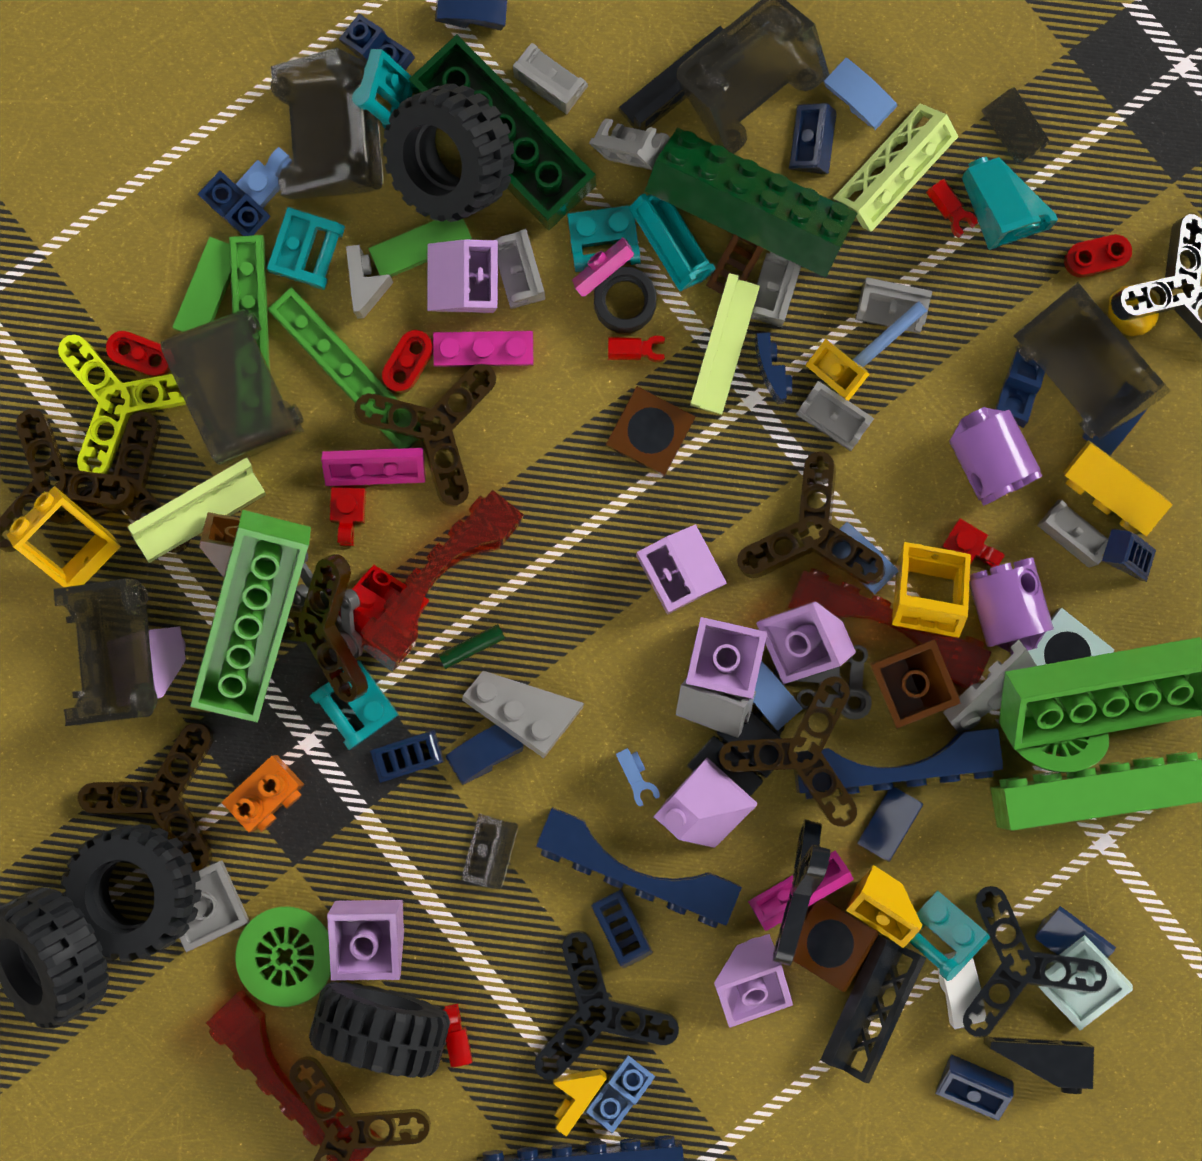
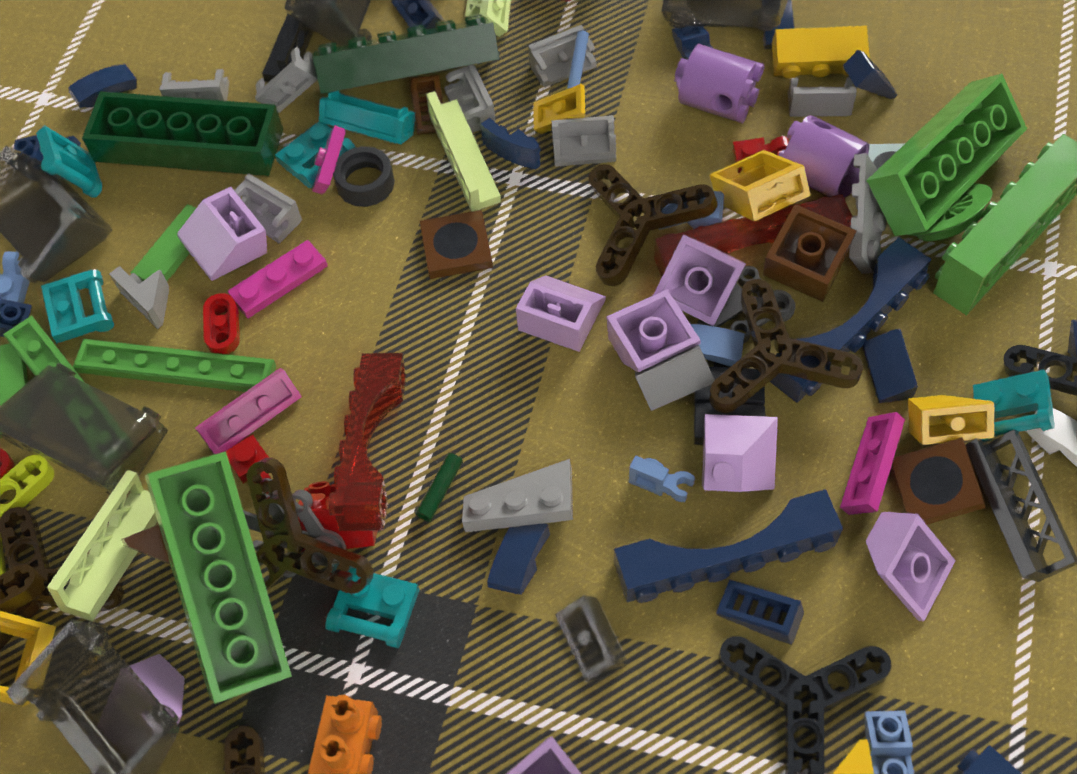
camera: 35 degrees left, 25 degrees down
(433, 747) = (452, 592): dark blue slope -> none
(447, 419) = (286, 340): dark brown piece -> none
(479, 139) = (109, 161): black tyre -> none
(633, 348) = (398, 200): red bar -> none
(809, 872) = (868, 427): black piece -> none

